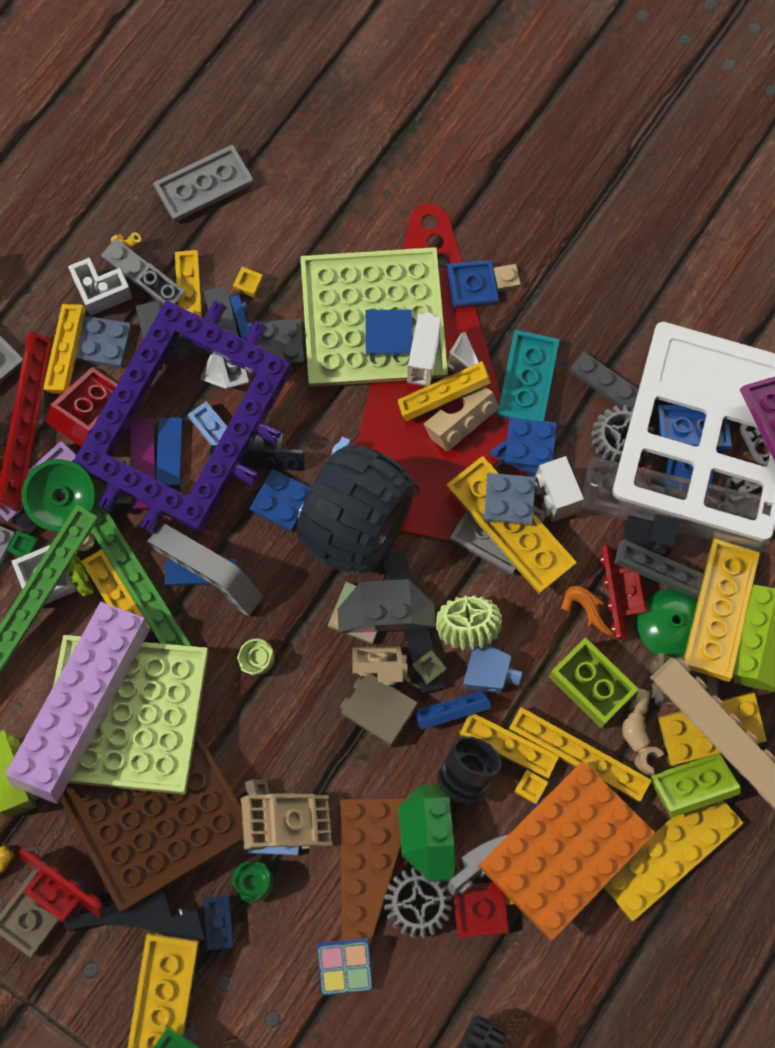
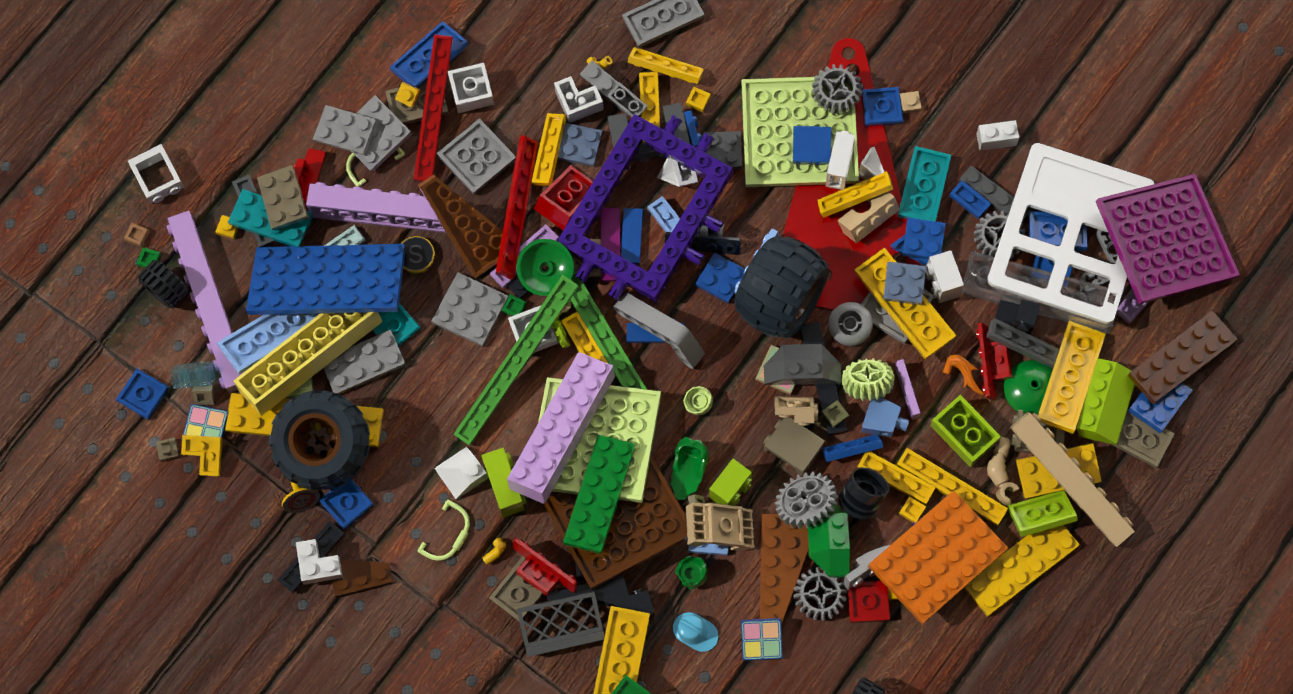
camera: 10 degrees right, 0 degrees up
(87, 981) = (565, 640): none -> dark grey fence
(129, 787) = (599, 494): none -> green plate
(207, 242) = (665, 65): none -> yellow plate
(218, 923) = (664, 602): dark blue plate -> none
(245, 744) = (688, 467): none -> green hair
(260, 959) = (695, 632): none -> medium azure piece
(299, 765) = (731, 484): none -> lime brick
(396, 781) = (806, 500): none -> light grey gear
(403, 254) = (825, 80): none -> light grey gear
(444, 552) = (850, 323): none -> light grey hat
(518, 632) = (907, 389): none -> lavender tile
(584, 393) = (970, 199): none -> blue plate
(614, 314) = (997, 135): none -> white brick

